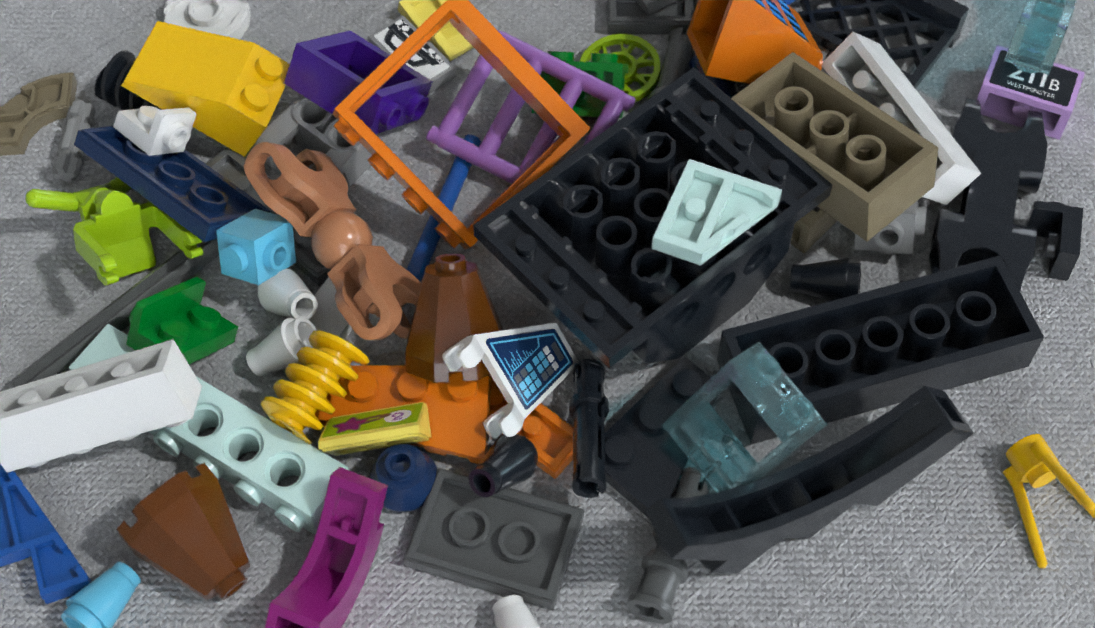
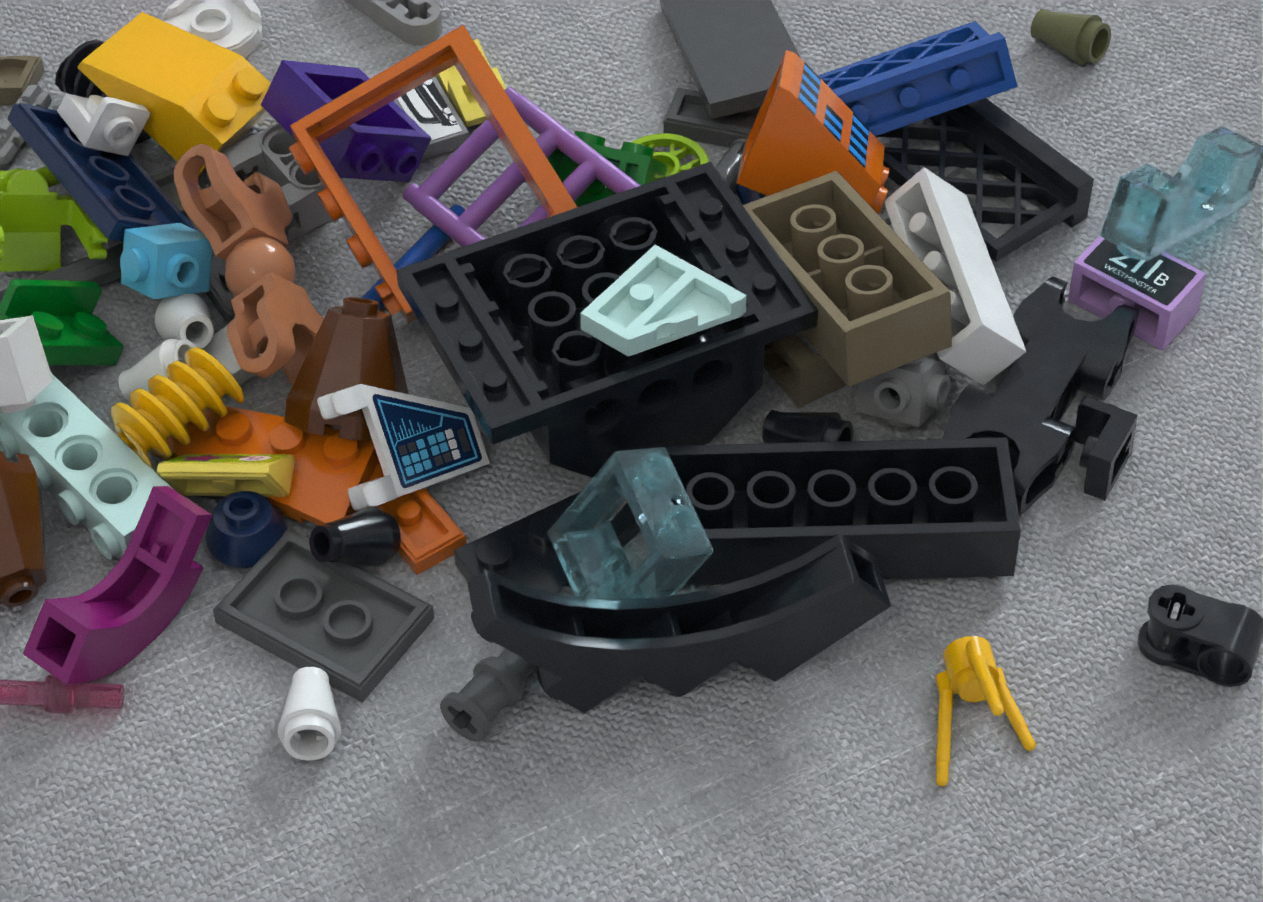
camera: 15 degrees right, 10 degrees down
(588, 410) = (475, 506): black pin -> none

